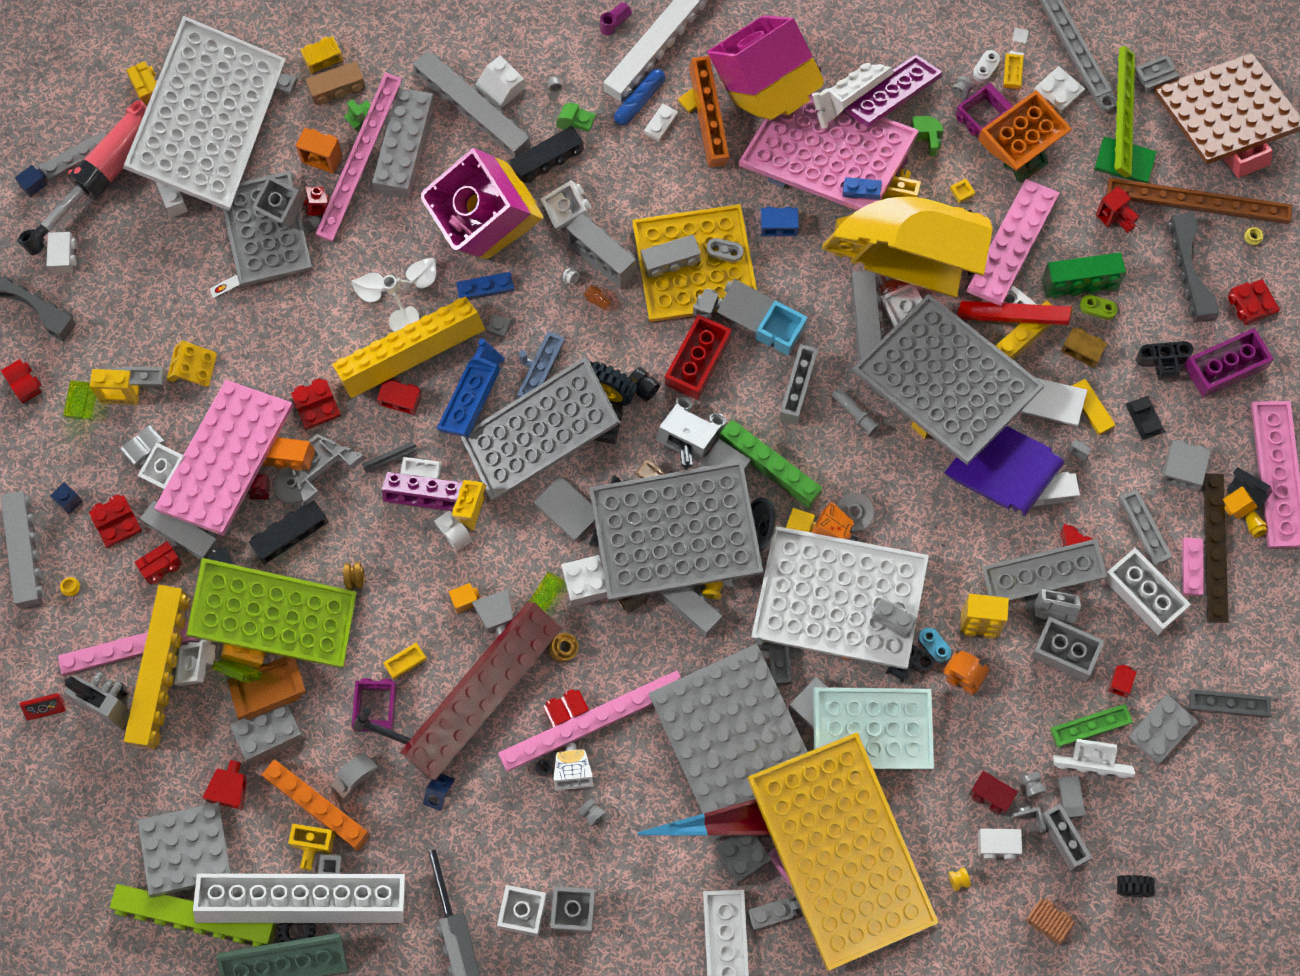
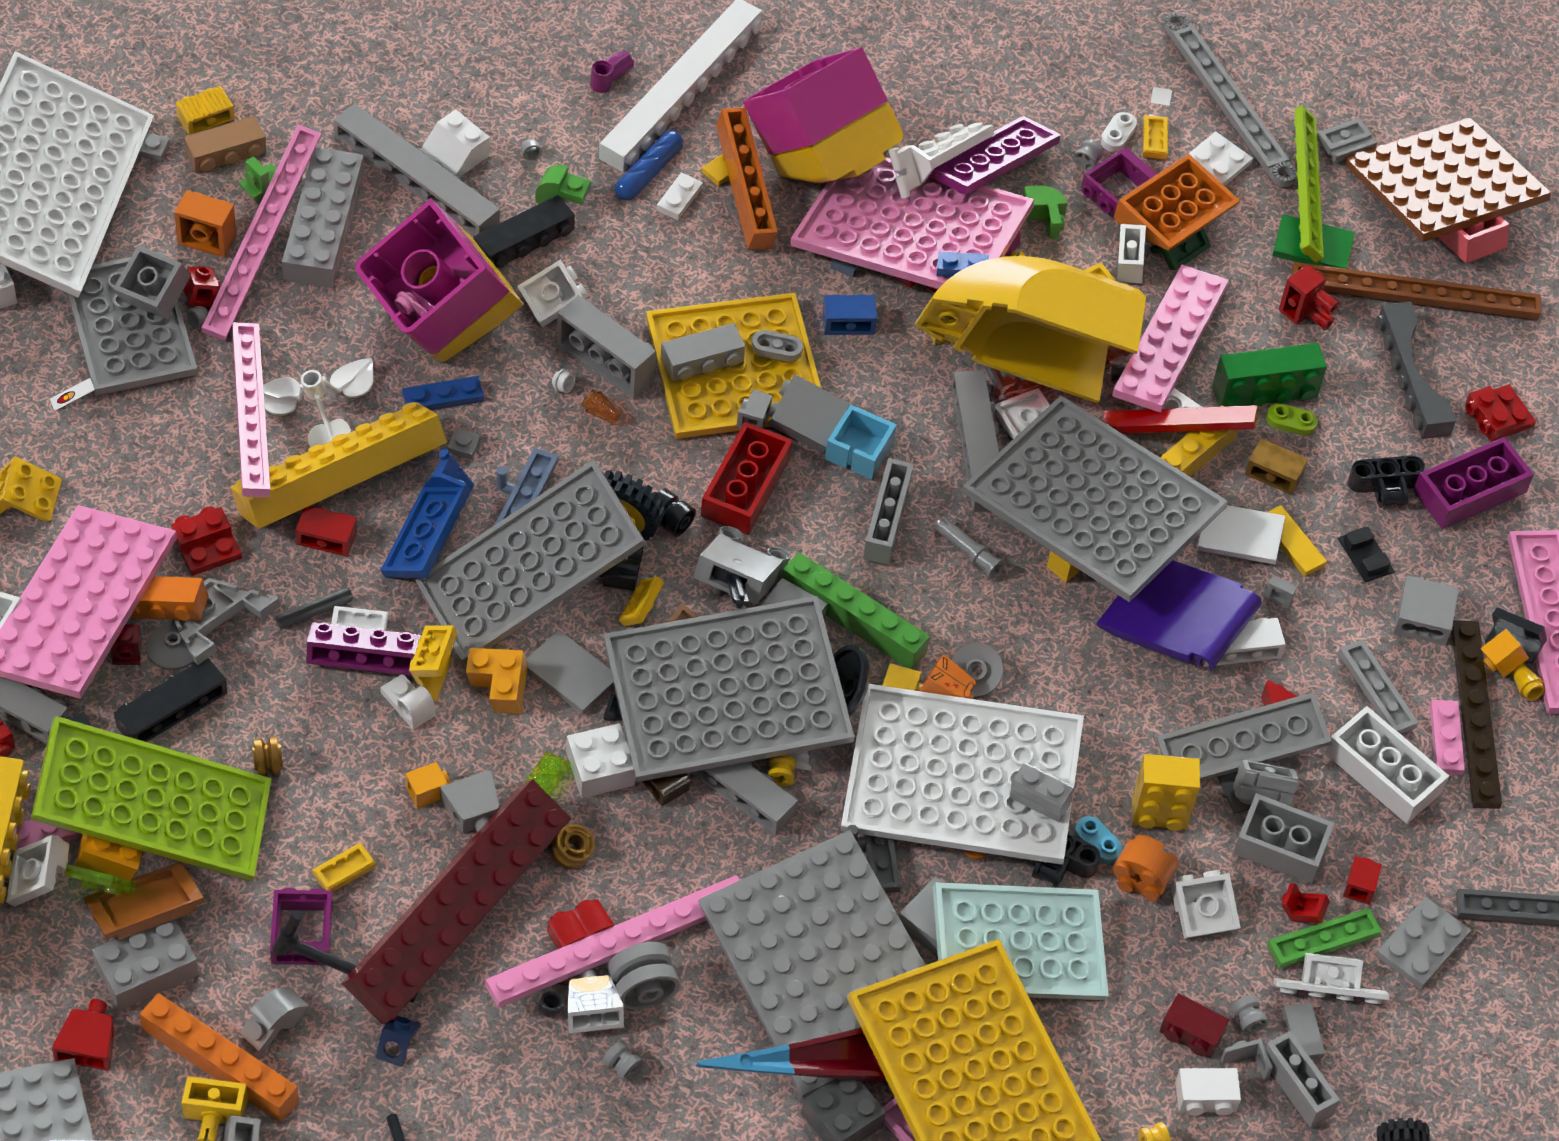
camera: 10 degrees left, 15 degrees down
(346, 305) = (250, 410): none -> plate
(520, 513) = (502, 672): none -> light orange brick
(607, 750) = (644, 975): none -> light grey wheel
(619, 454) = (641, 601): none -> yellow plate
(988, 171) = (1131, 253): none -> white brick
(1007, 698) = (1205, 904): none -> white plate
(1078, 700) = (1304, 906): none -> red bracket
(1256, 232) = (1493, 328): light yellow plate -> none

